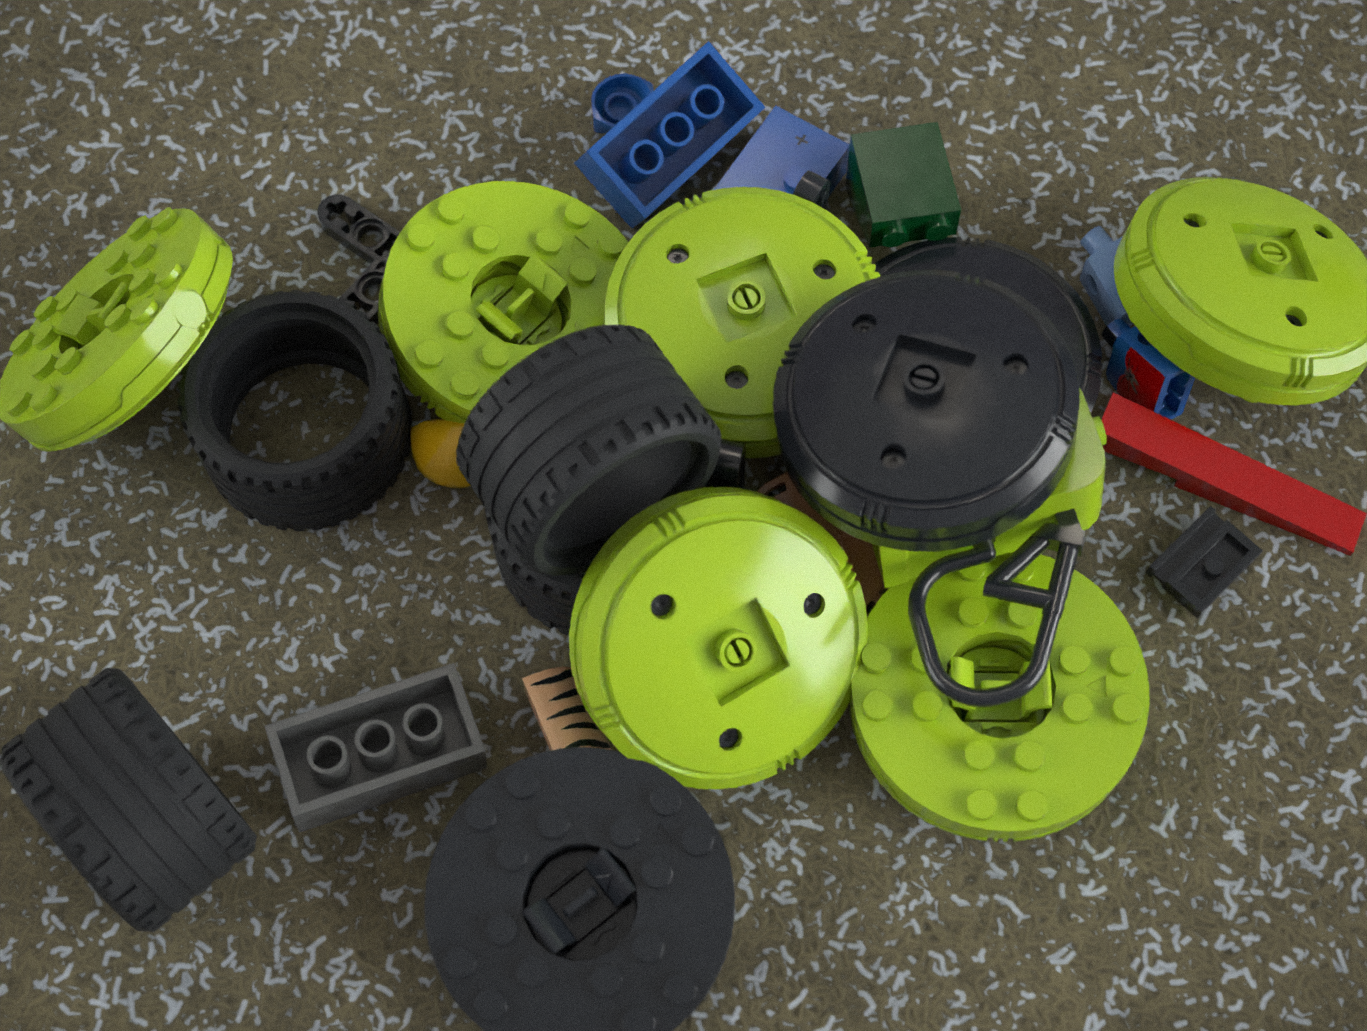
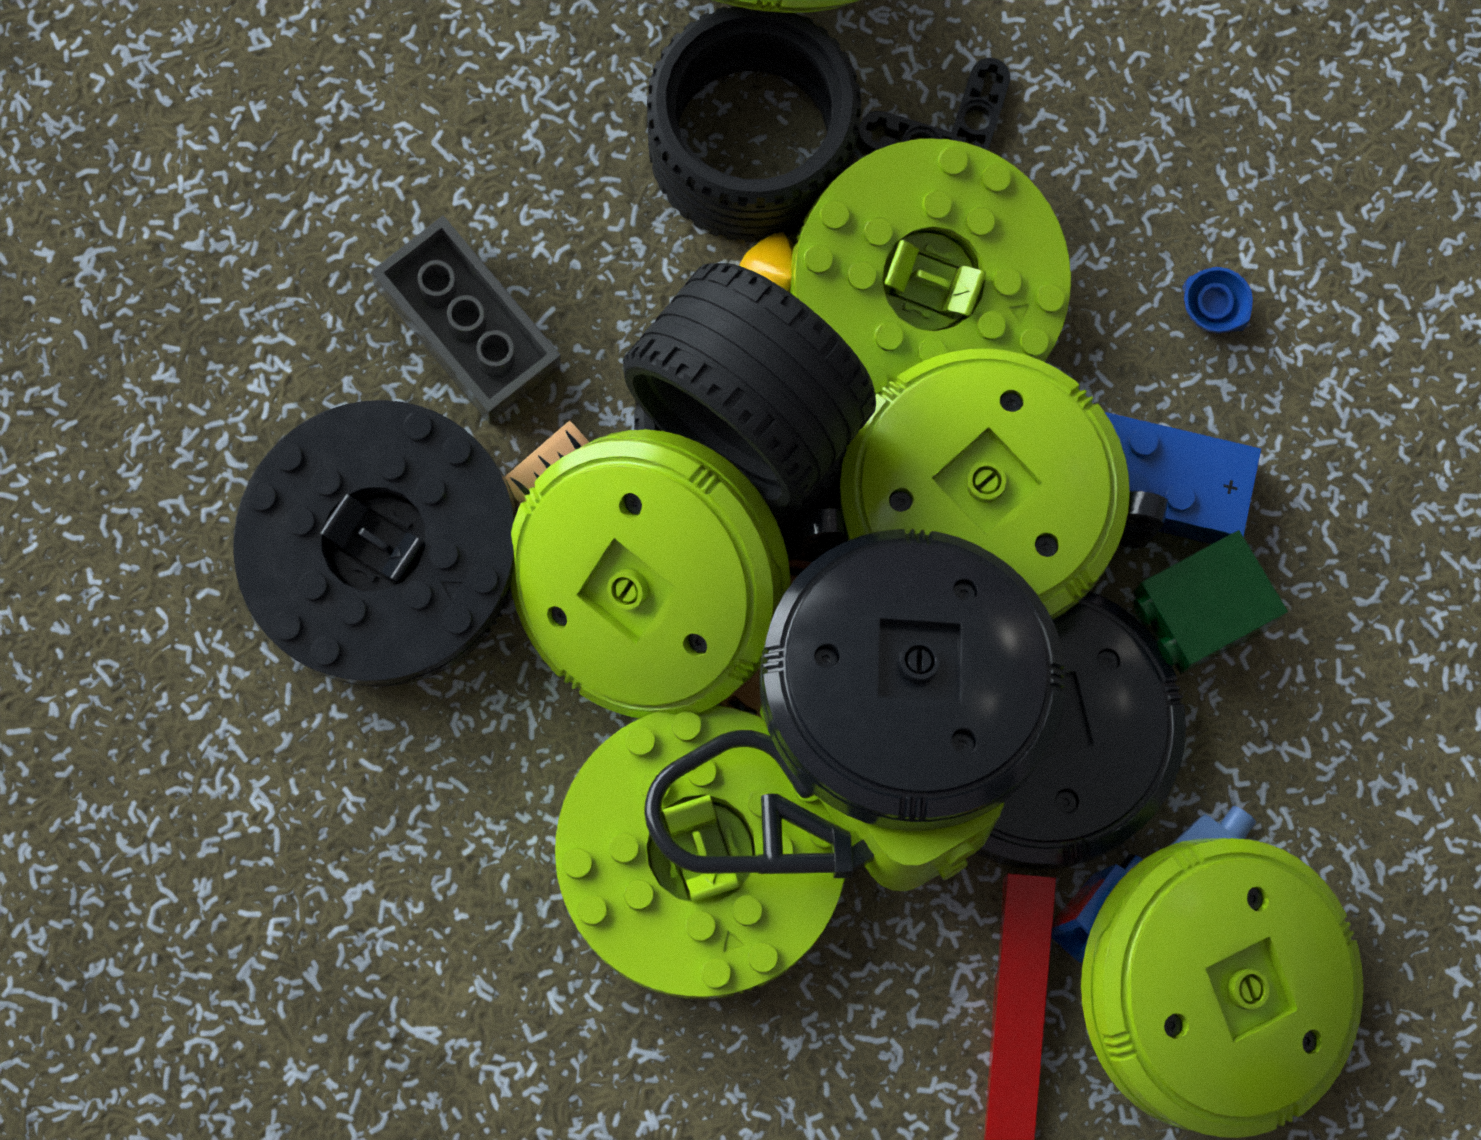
camera: 65 degrees right, 10 degrees up
(126, 801) = (329, 128): black tyre -> none
(669, 135) = (1188, 357): blue brick -> none
(1204, 562) = (917, 1021): black plate -> none

